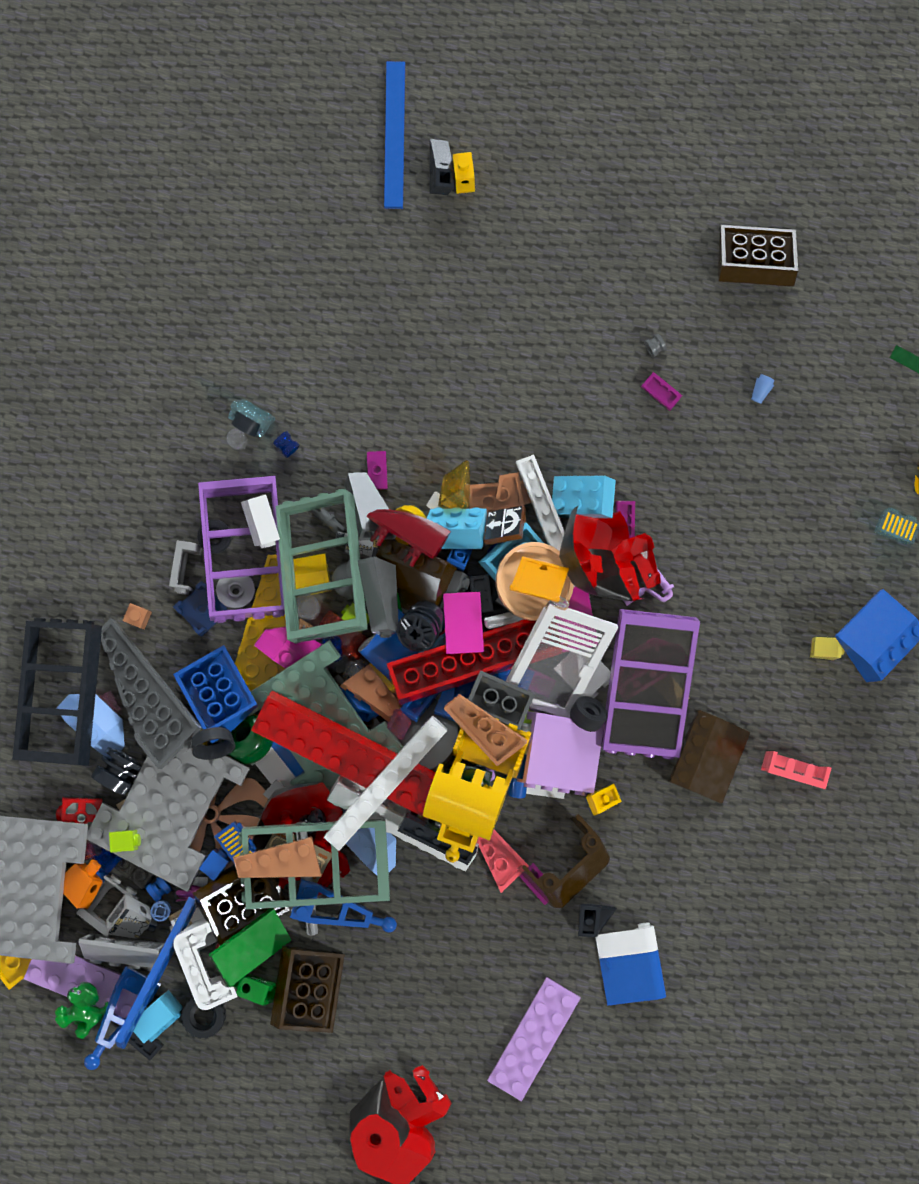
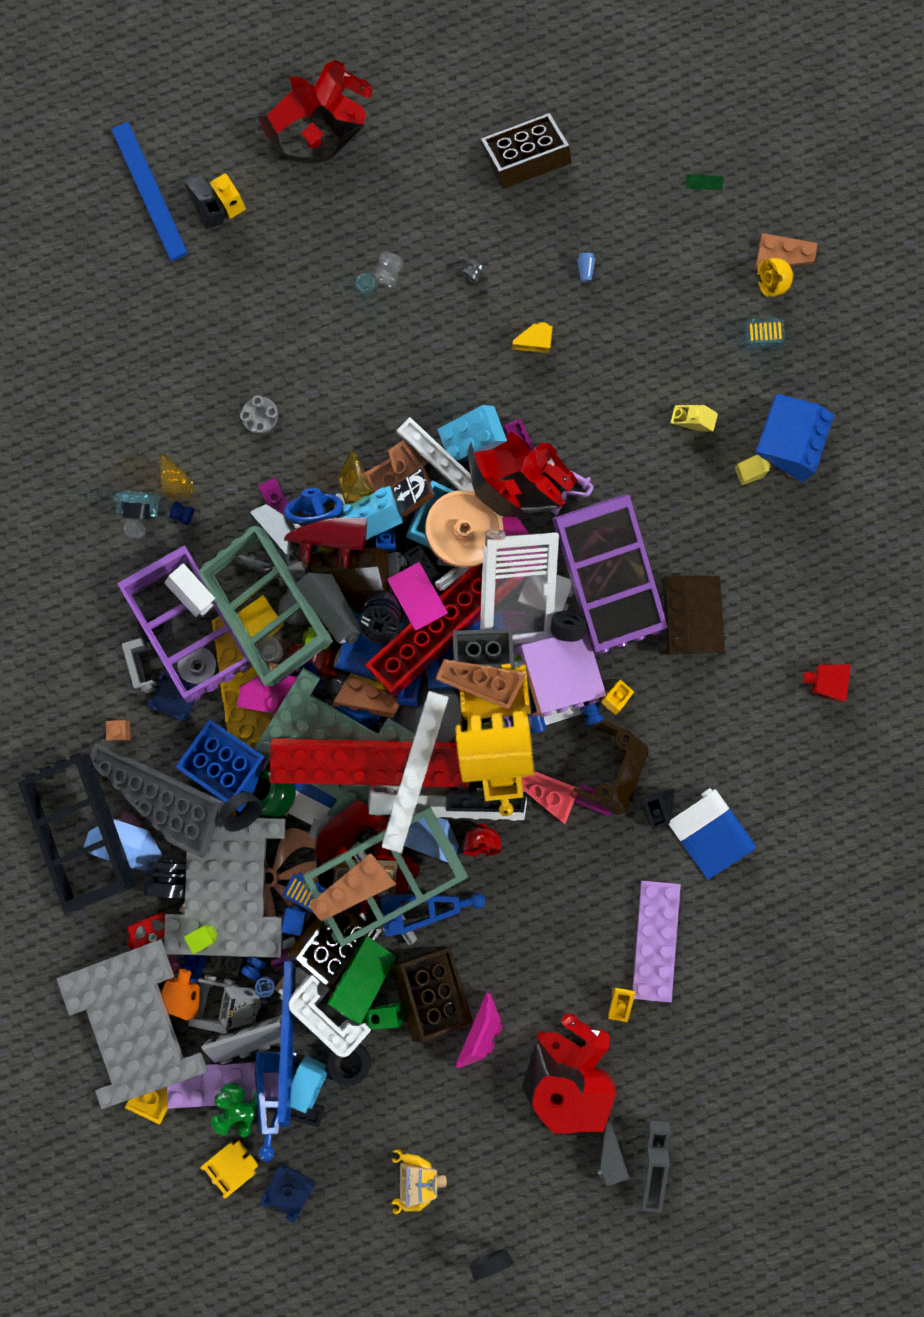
camera: 25 degrees left, 0 degrees up
(54, 1059) = (231, 1167): none -> yellow plate
(95, 1105) = (288, 1191): none -> dark blue panel
(214, 1154) = (417, 1183): none -> torso
(293, 412) = (174, 481): none -> clear yellow slope
(335, 1047) = (481, 1034): none -> dark pink wedge
(398, 387) = (259, 415): none -> light grey dish
(398, 724) = (401, 714): clear pink piece -> none
(407, 492) = (311, 504): none -> blue piece
(418, 872) = (481, 841): none -> red cylinder
(474, 1081) = (621, 1004): none -> yellow slope
(539, 579) = (468, 523): light orange container -> none
(553, 309) = (365, 280): none -> clear light blue wheel
(572, 803) = (591, 713): none -> blue wheel
(578, 307) = (387, 270): none -> clear wheel
(591, 125) = (320, 102): none -> red piece
(661, 391) = (497, 310): magenta plate -> none
(683, 434) = (534, 339): none -> yellow slope
(795, 770) = (776, 590): coral window -> none
(796, 575) = (694, 417): none -> light yellow slope
(805, 877) = (829, 681): none -> red torso

